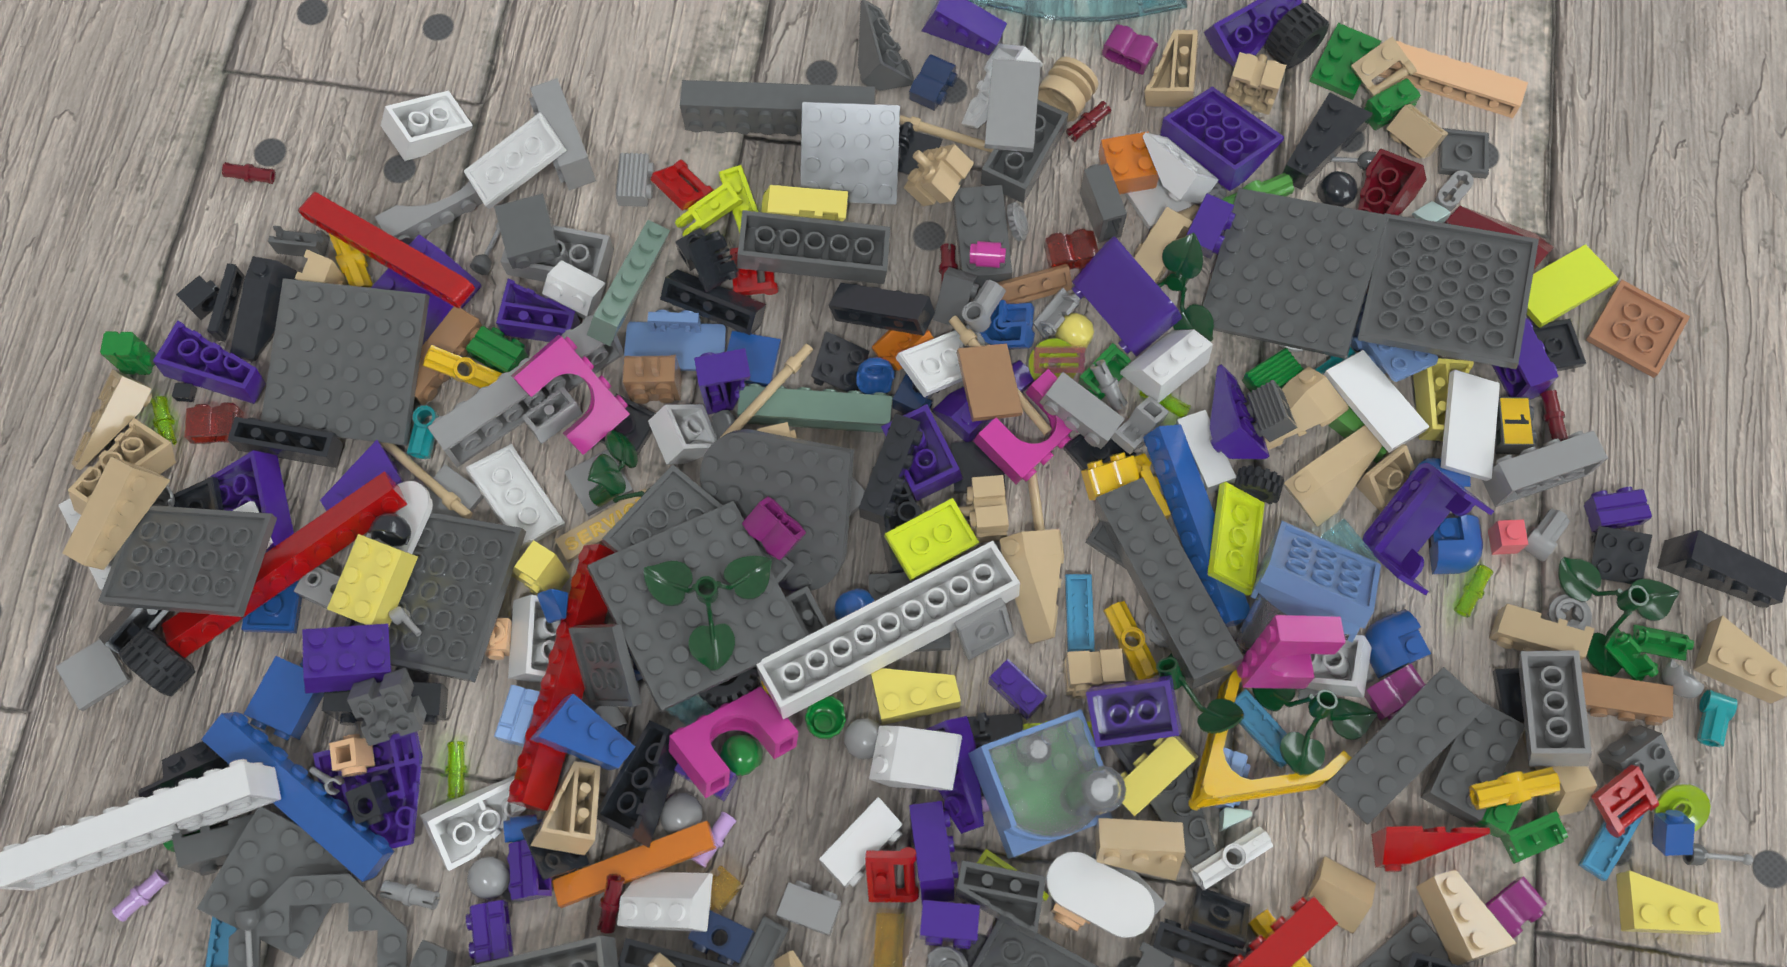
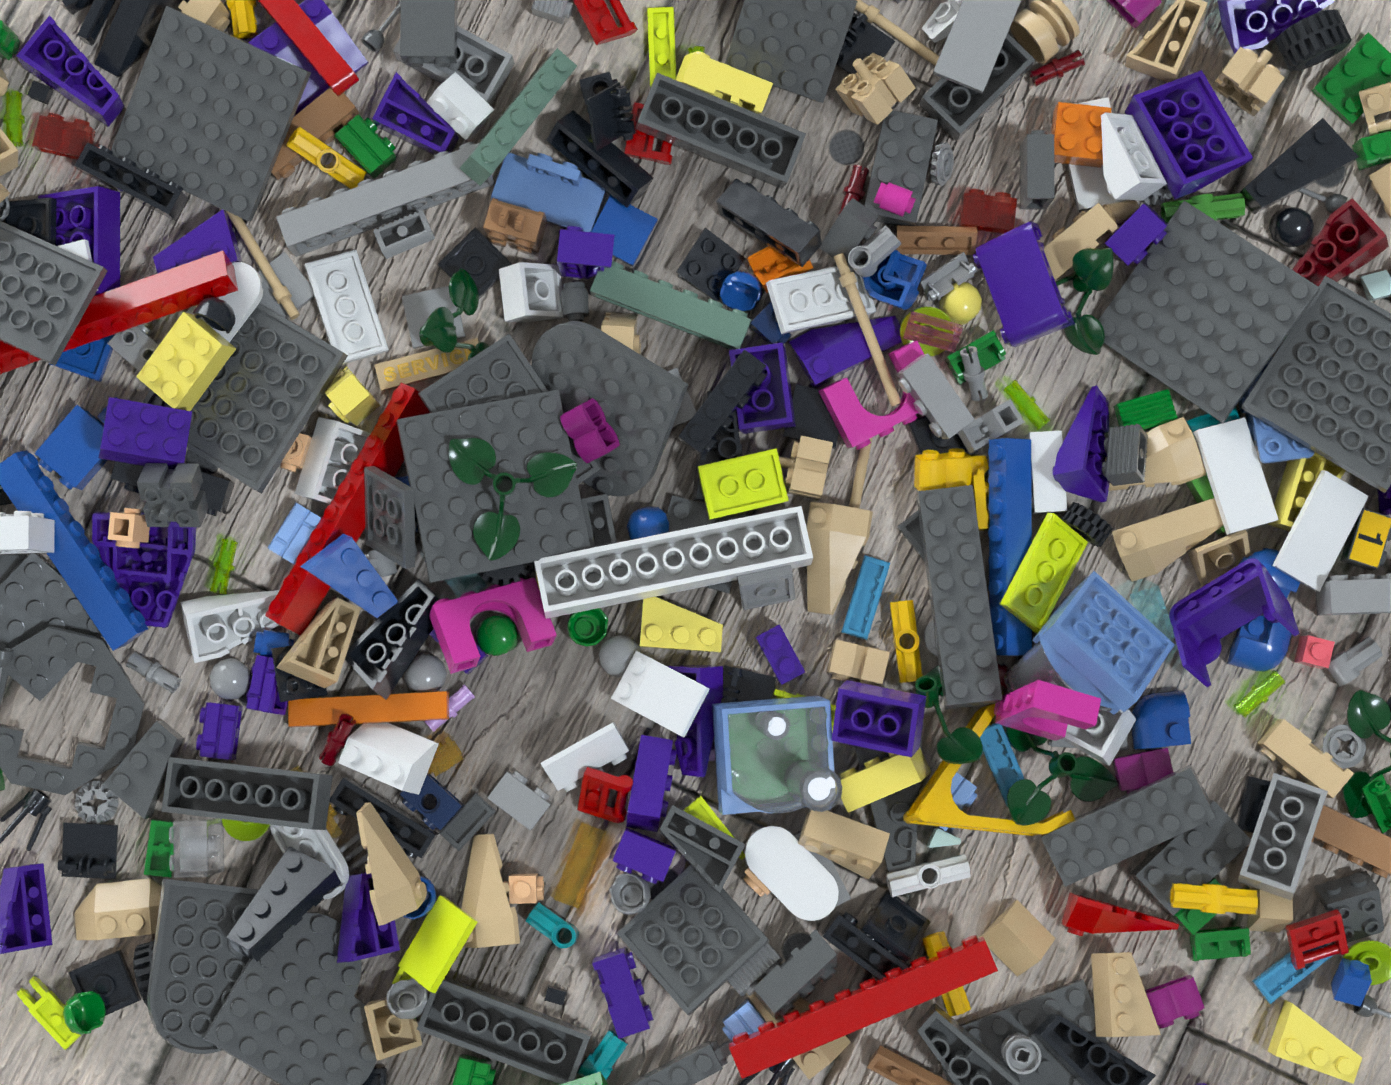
camera: 15 degrees right, 15 degrees up
(328, 780) = (102, 545): light grey hand -> none
(358, 800) = (143, 572): black brick -> none
(401, 615) = (208, 402): light grey hand -> none
(422, 439) = (265, 220): teal piece -> none
(553, 604) = (356, 437): blue slope -> none
(604, 409) = (425, 188): dark pink arch -> none
(709, 209) = (625, 51): neon yellow hinge -> none
(792, 365) = (658, 256): tan bar -> none
(989, 382) = (852, 337): medium nougat tile -> none
(1169, 363) = (1042, 368): white slope -> none

